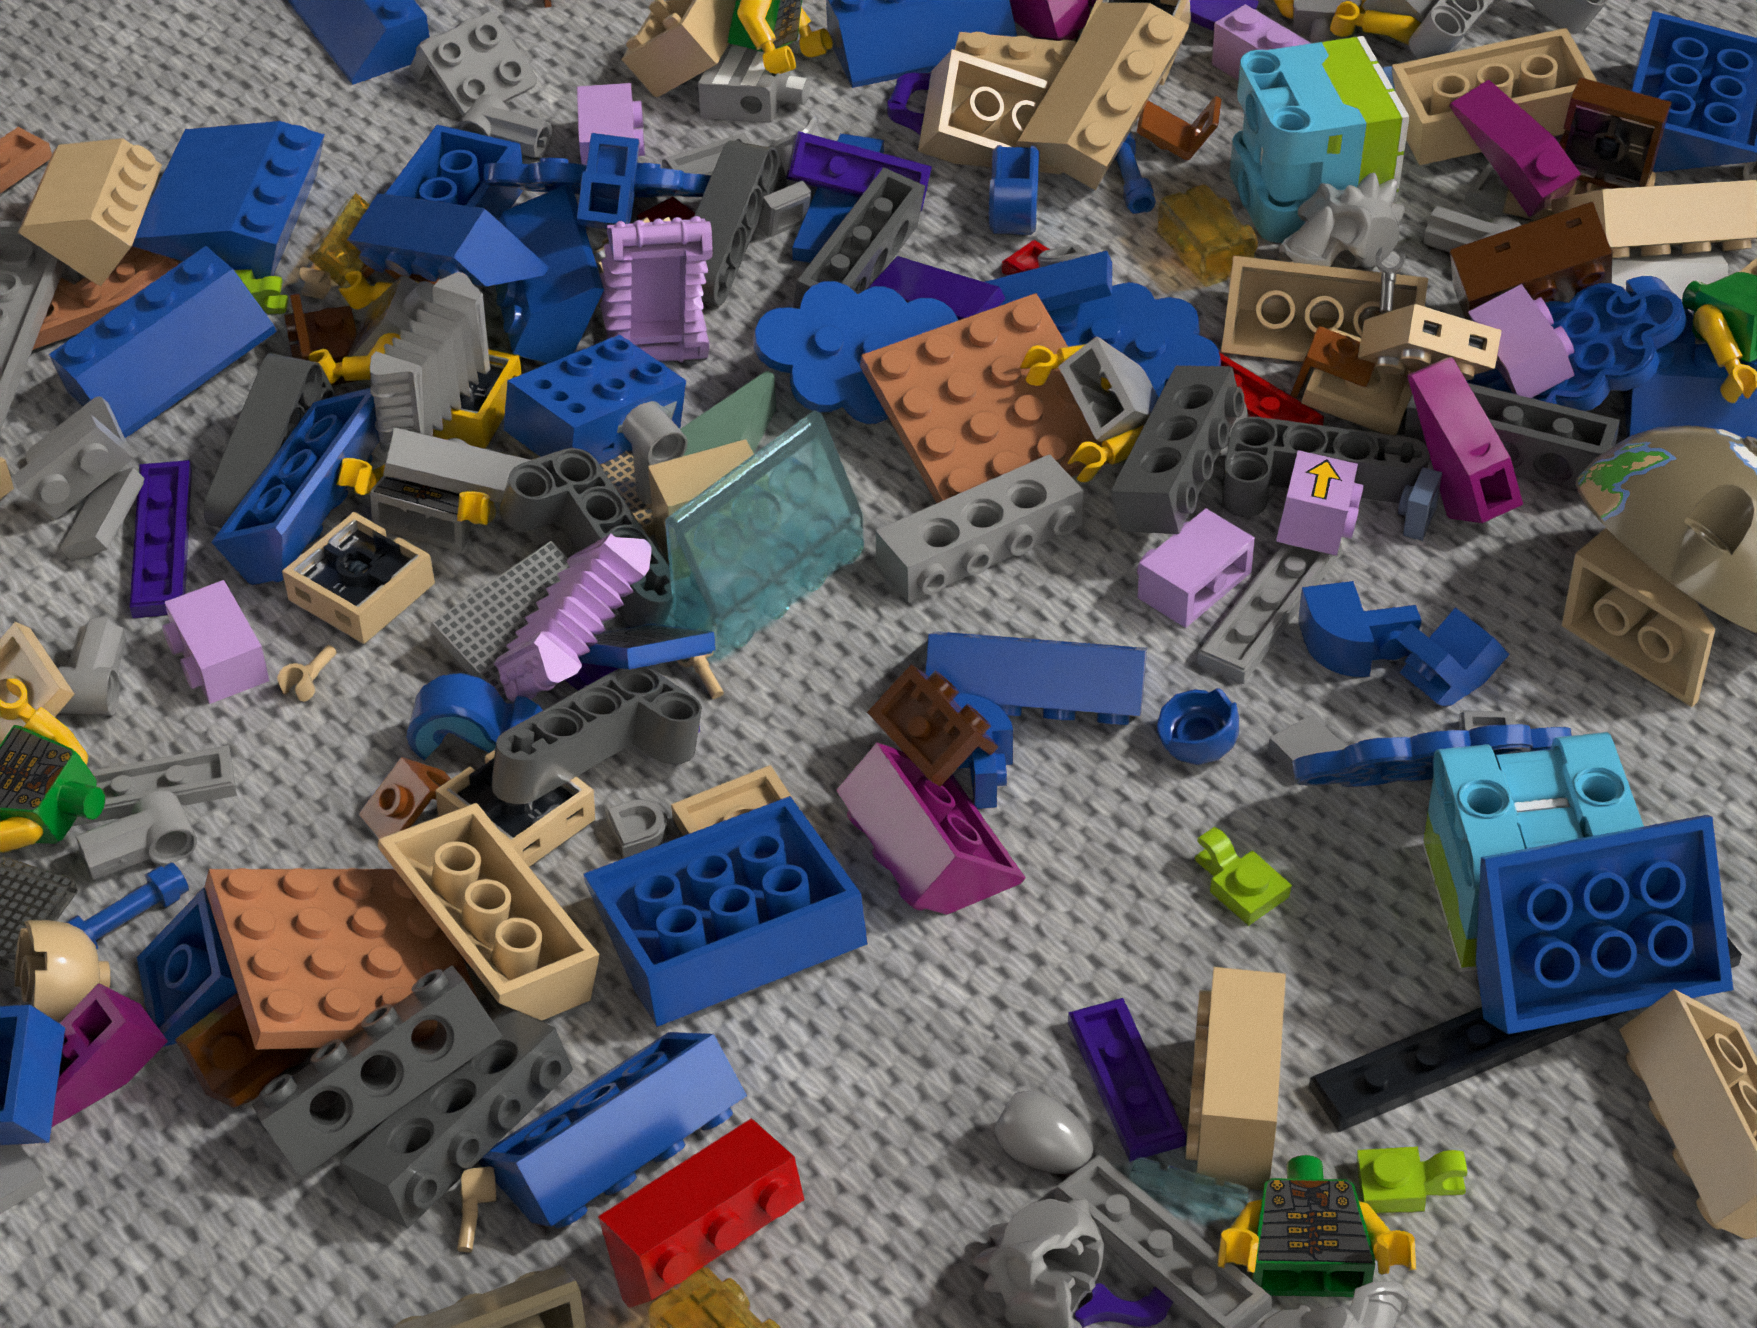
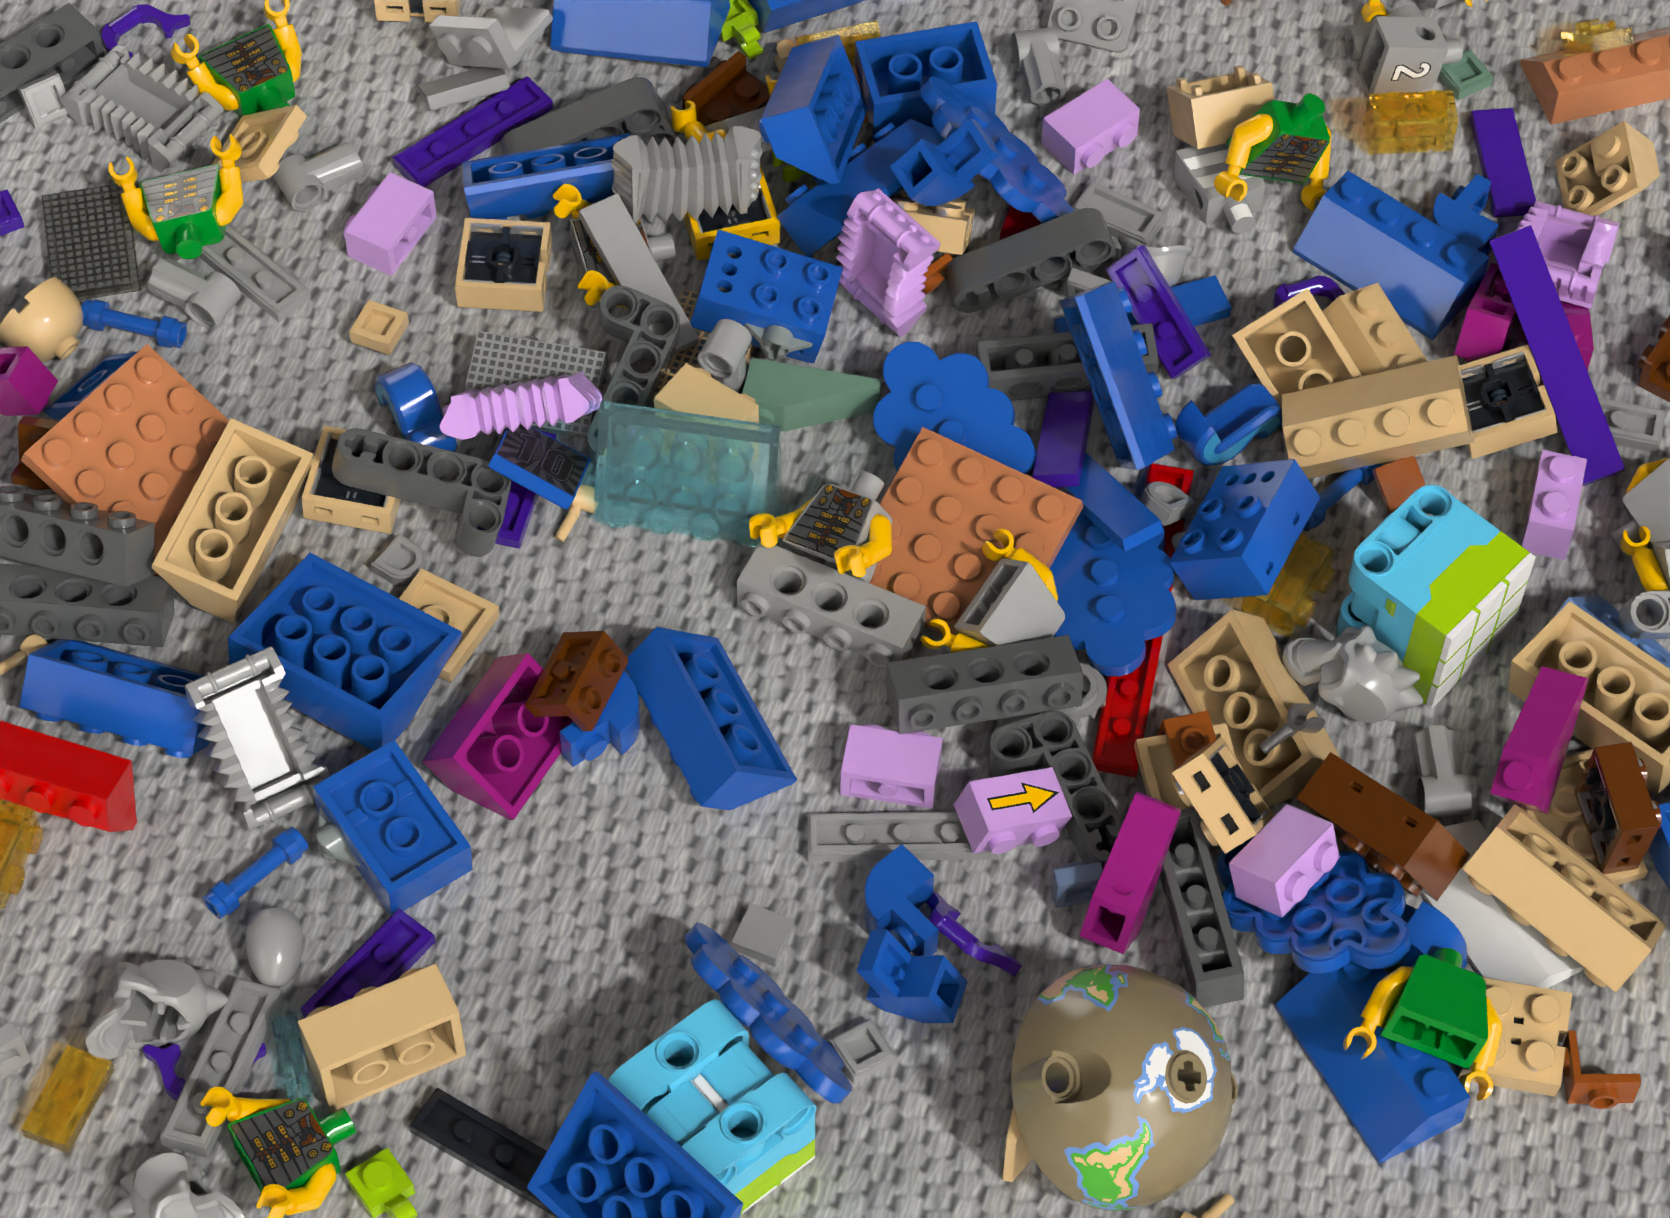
camera: 55 degrees right, 10 degrees up
(304, 675) = (396, 295): tan hand -> none
(334, 710) = (379, 327): none -> tan plate
(402, 797) = (329, 410): dark orange bracket -> none
(790, 1016) = (254, 738): none -> light grey piece
(920, 464) = (834, 528): none -> torso
(936, 200) = (1118, 375): none -> blue slope
(937, 1154) = (224, 898): none -> blue bar
(978, 966) = (390, 828): none -> blue piece
(1145, 222) = (1244, 530): none -> blue piece
(1198, 726) = (722, 850): blue hair -> none
(1242, 884) = (599, 959): lime plate -> none
(1426, 597) = (945, 917): none -> dark purple helmet

